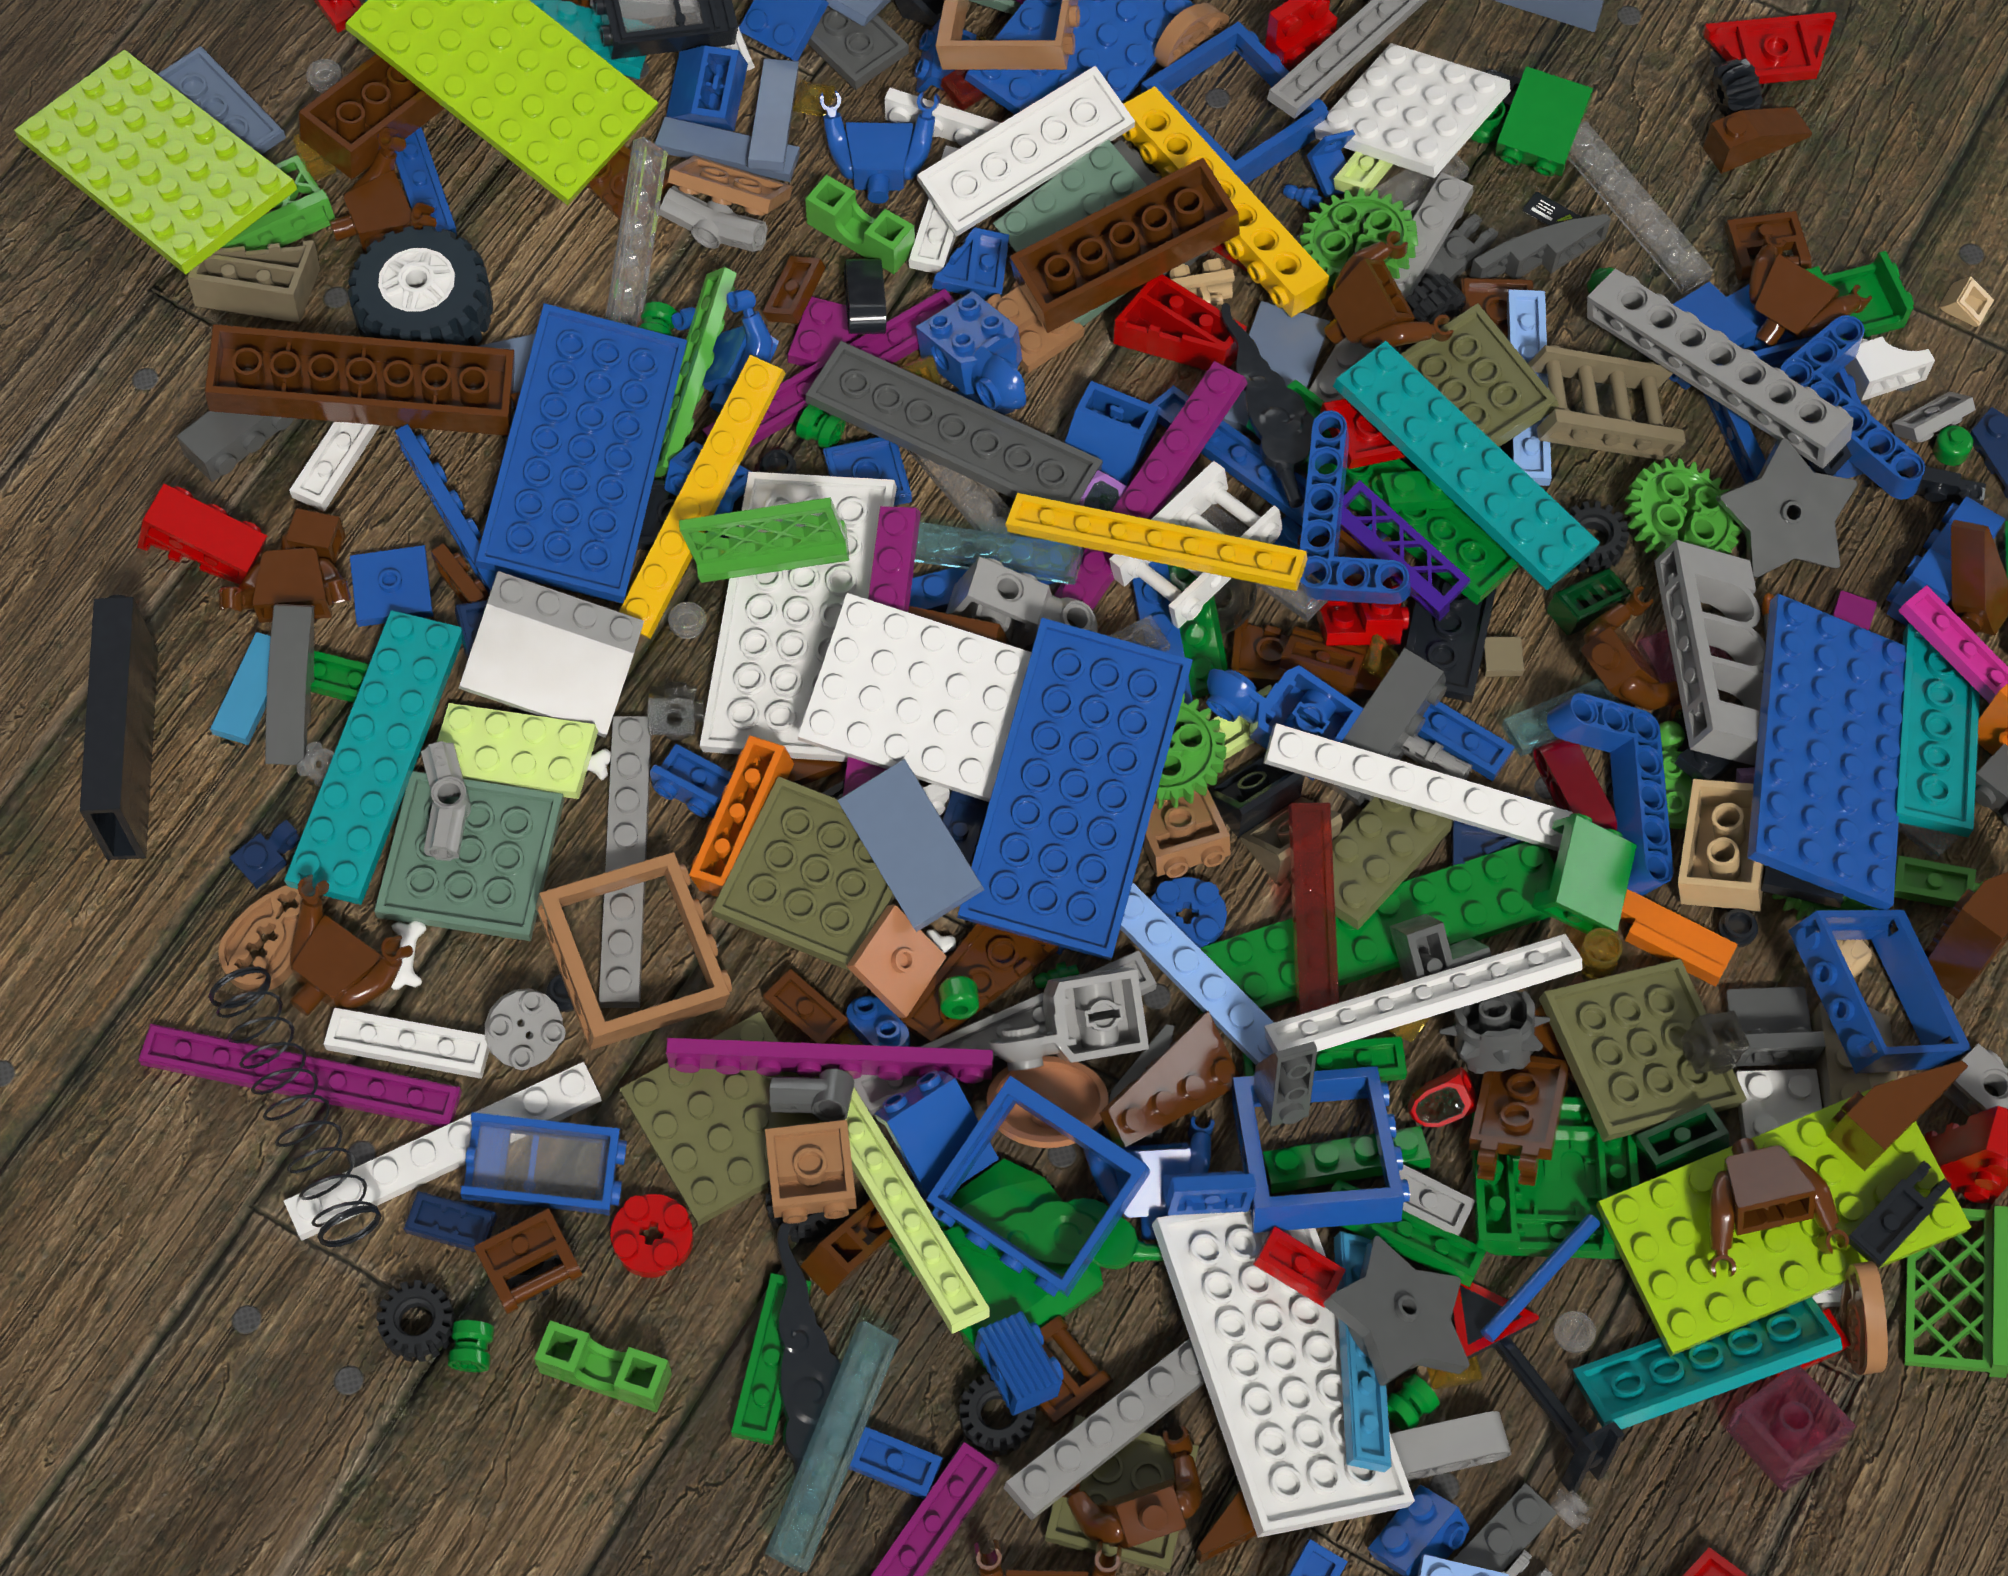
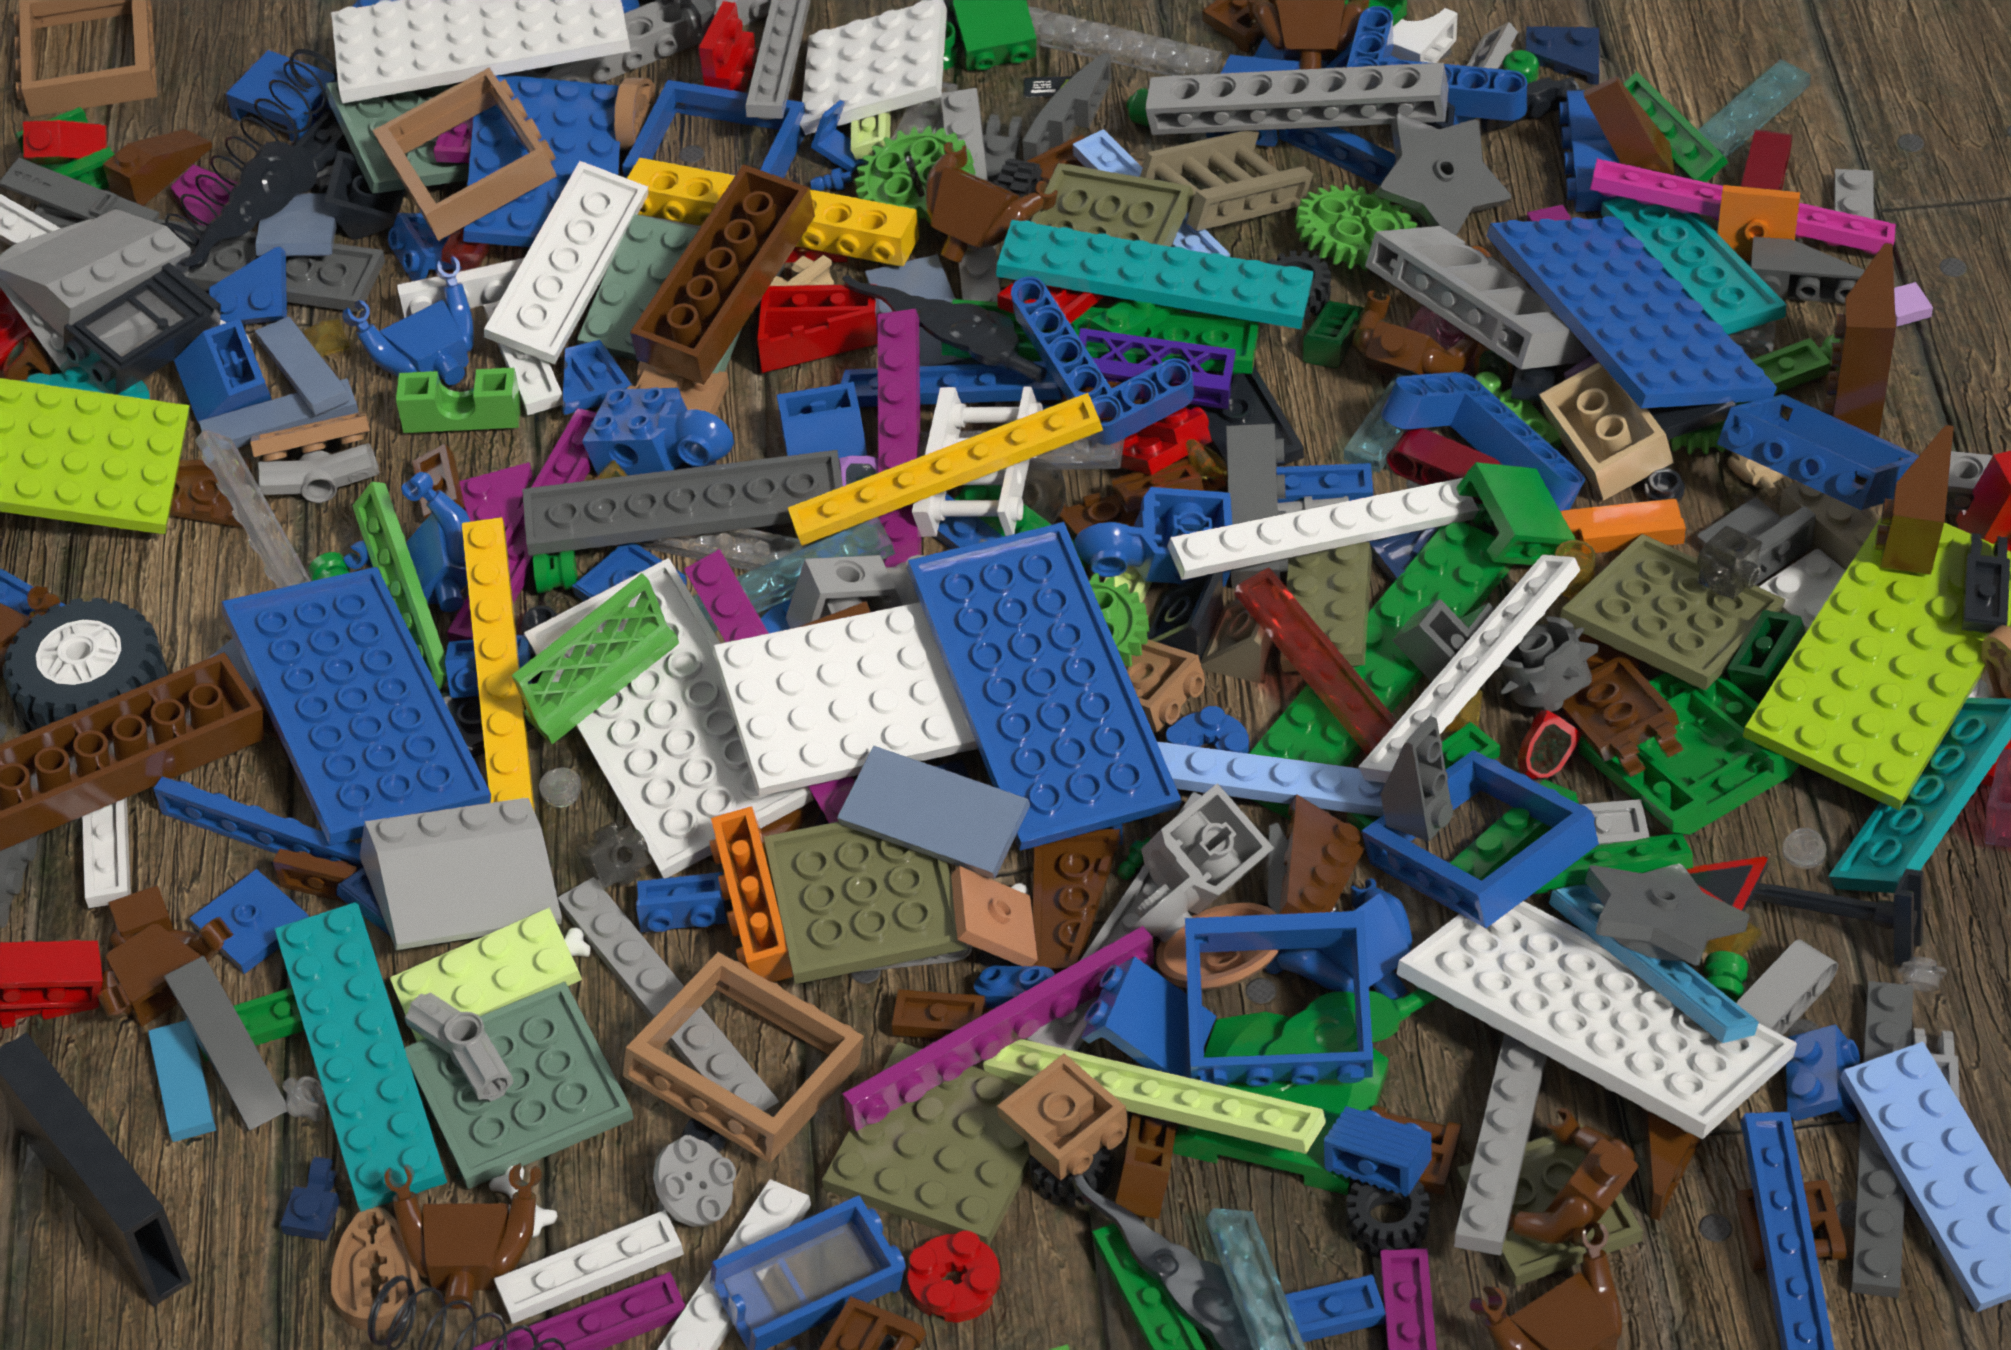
camera: 30 degrees left, 15 degrees down
(823, 1096) = (1021, 1056): dark grey piece -> none
(865, 296) = (512, 449): black beam -> none
(958, 997) = (1071, 915): green piece -> none
(1208, 1192) = (1427, 910): blue bracket -> none
(1299, 1266) = (1547, 928): red plate -> none
(1503, 657) = (1302, 410): dark tan tile -> none
(1540, 1278) = (1745, 820): blue bar -> none
(1764, 1192) = (1874, 624): reddish brown torso -> none

